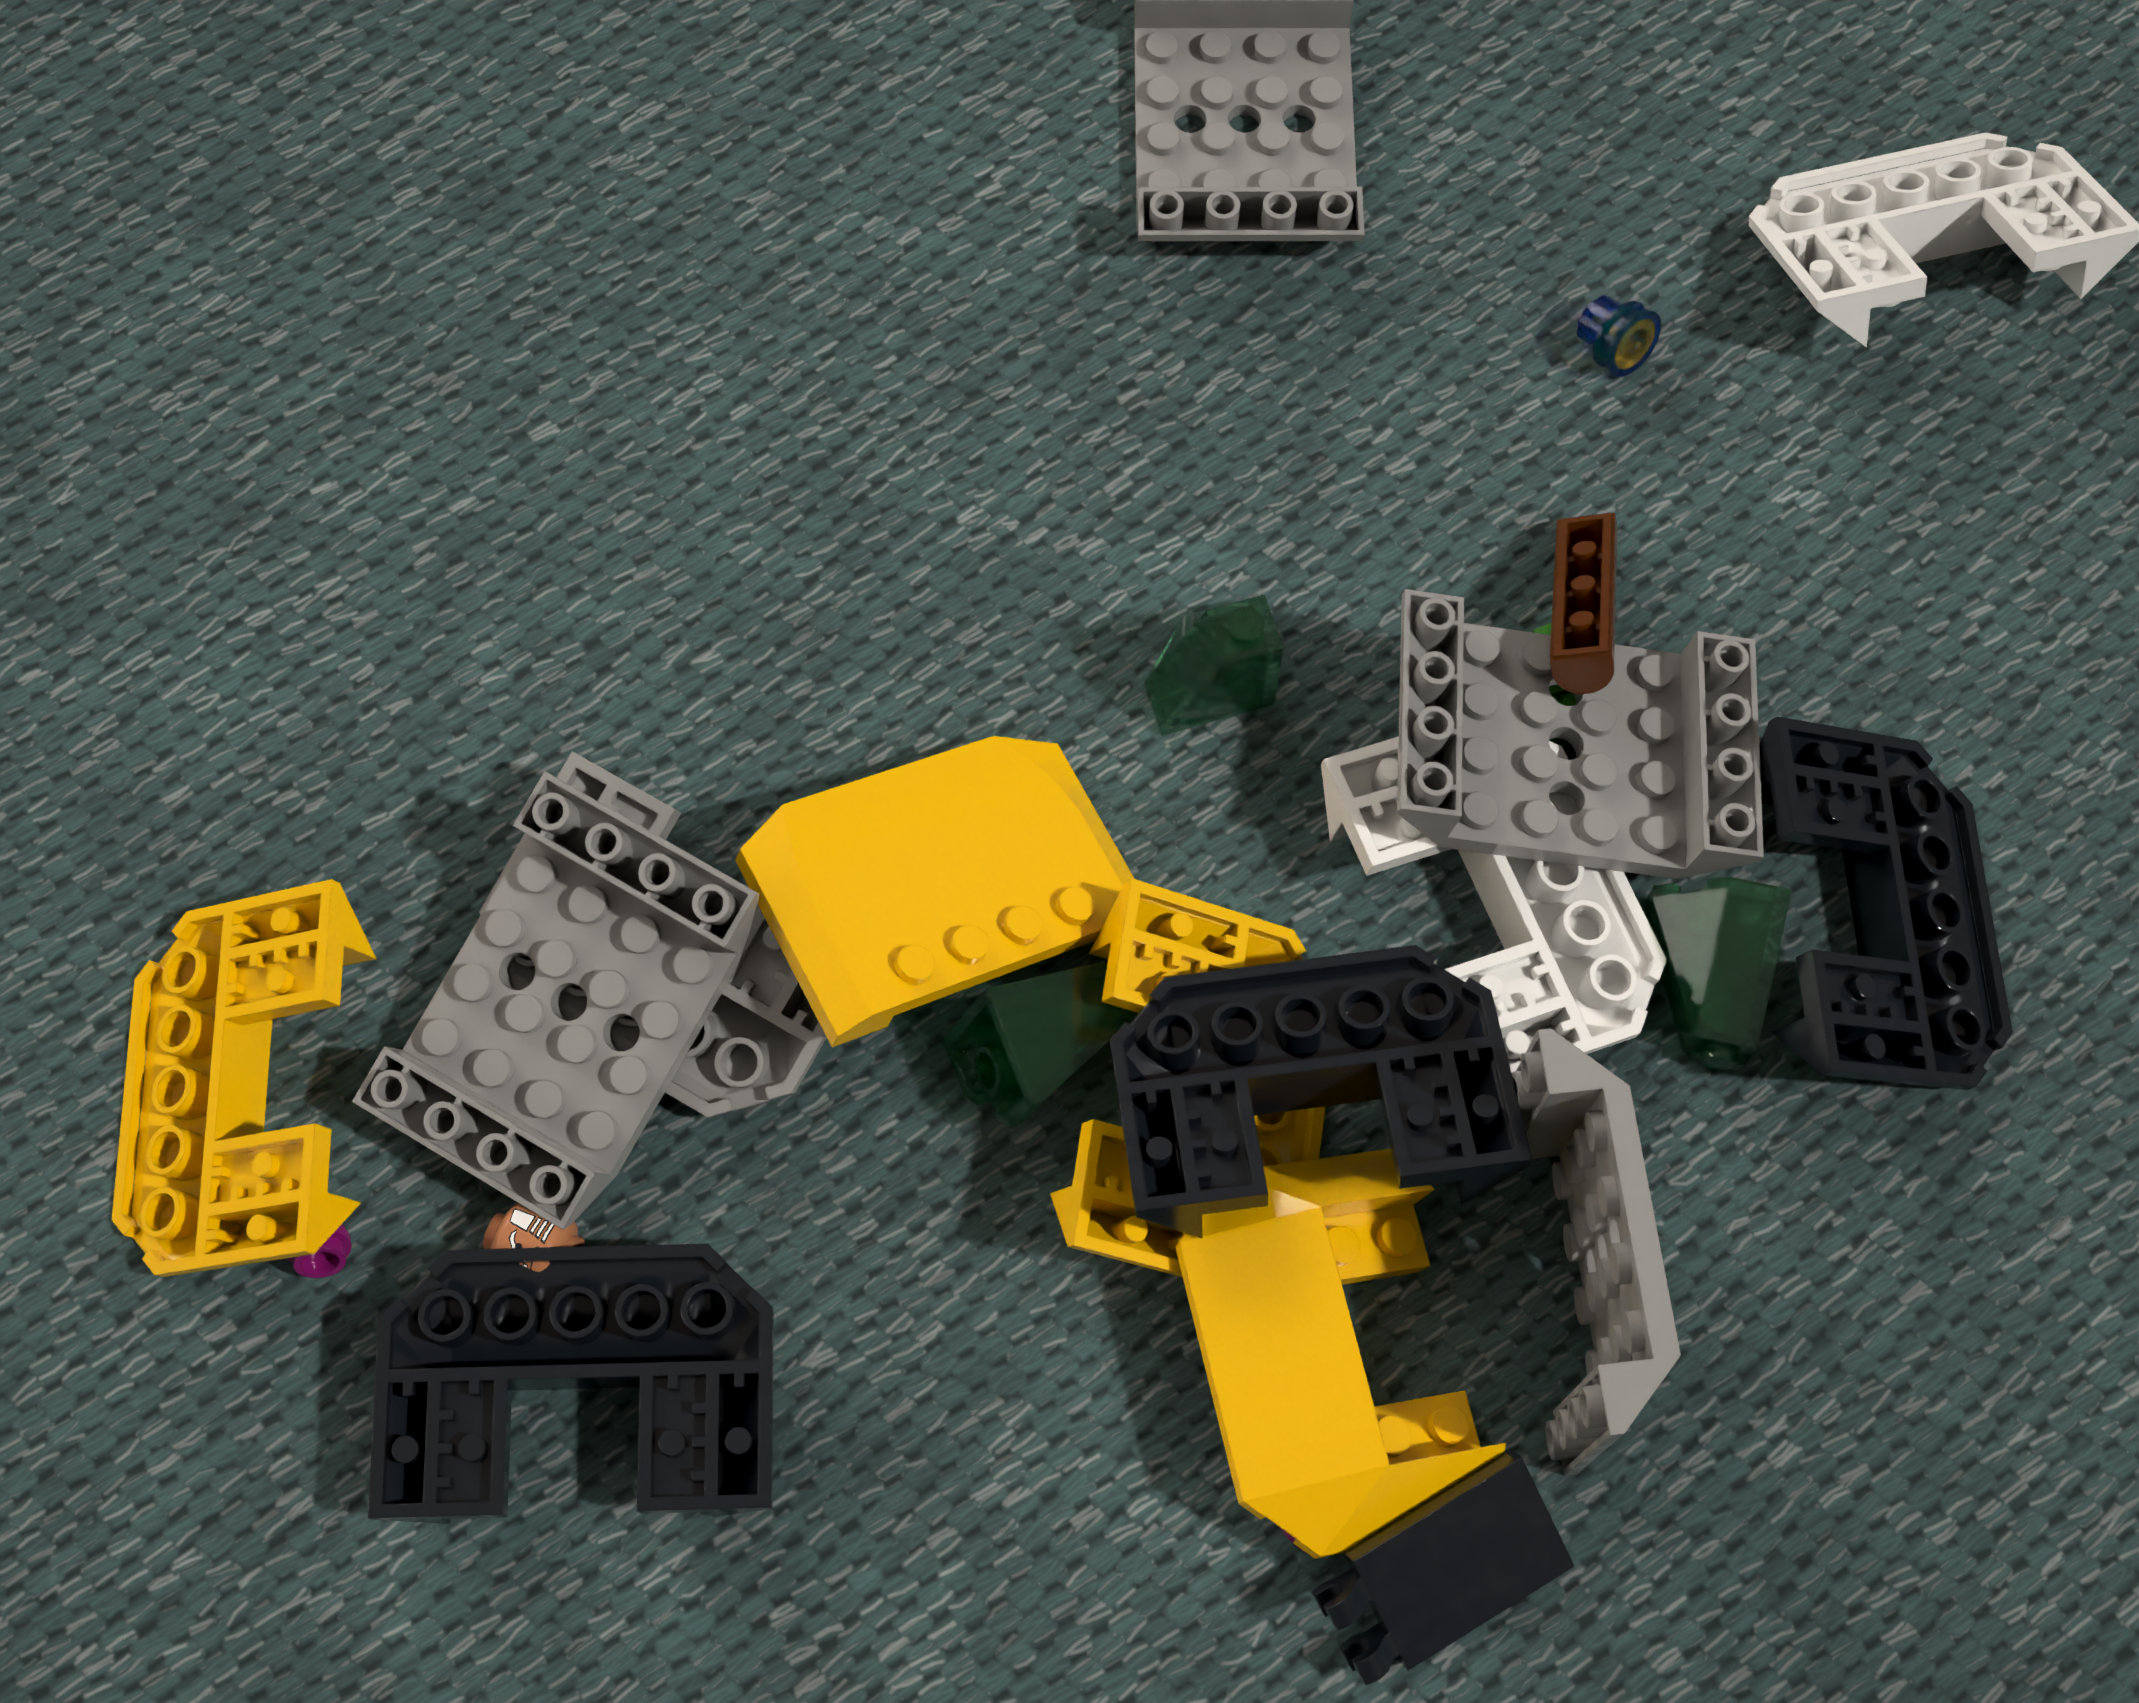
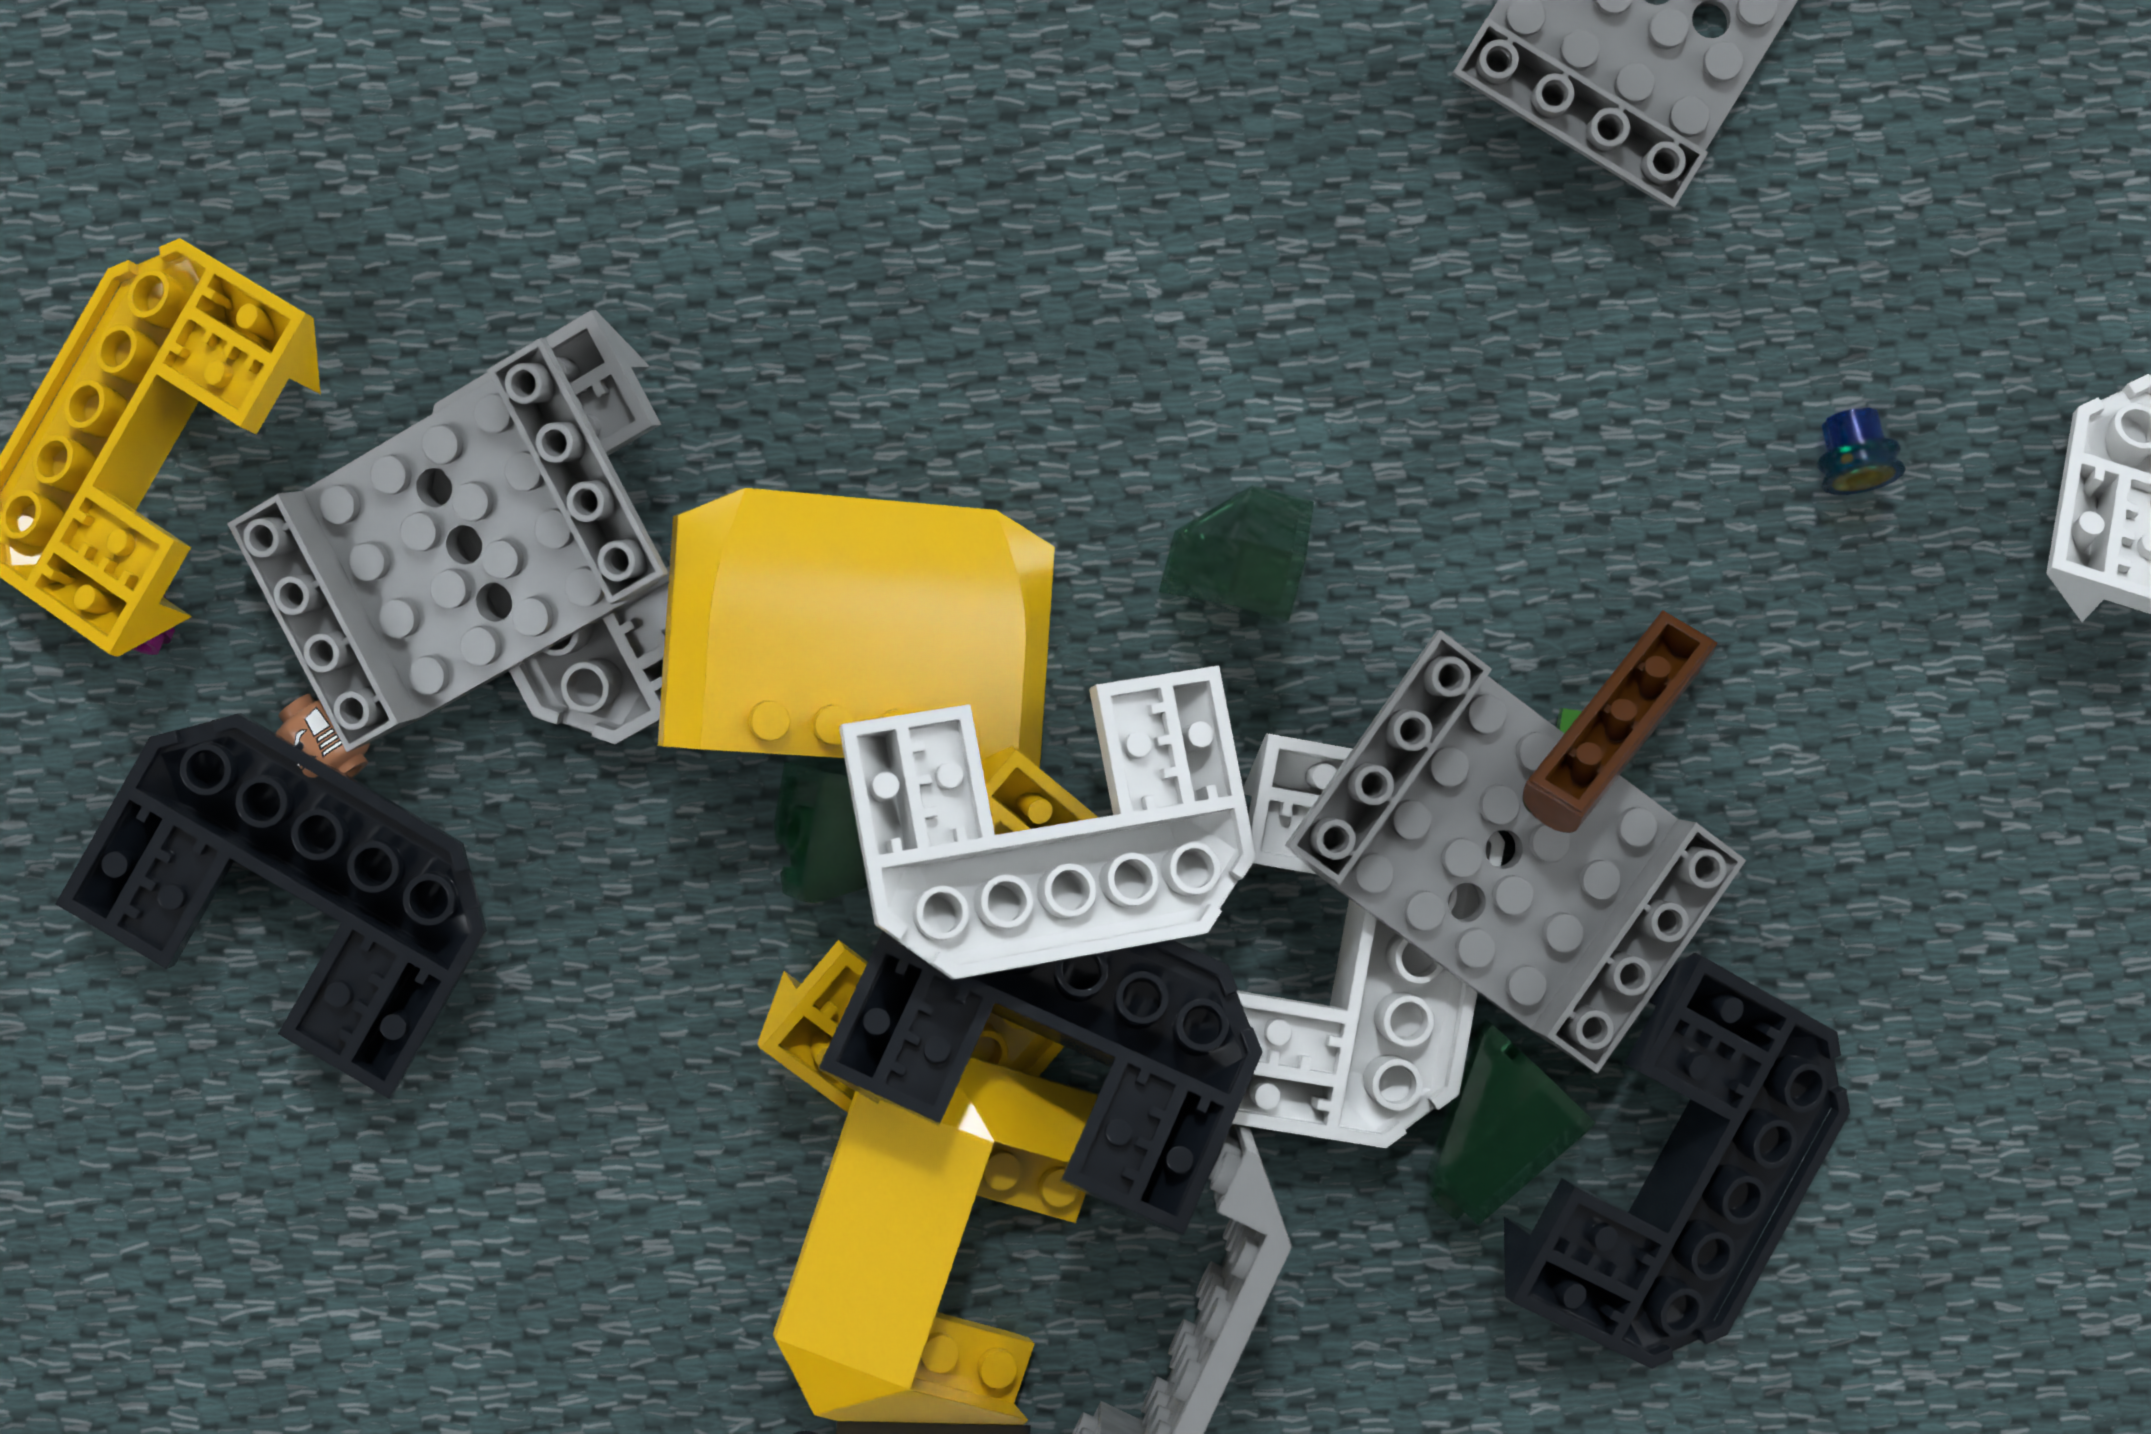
camera: 30 degrees right, 20 degrees up
(1184, 992) = (1061, 889): none -> white slope

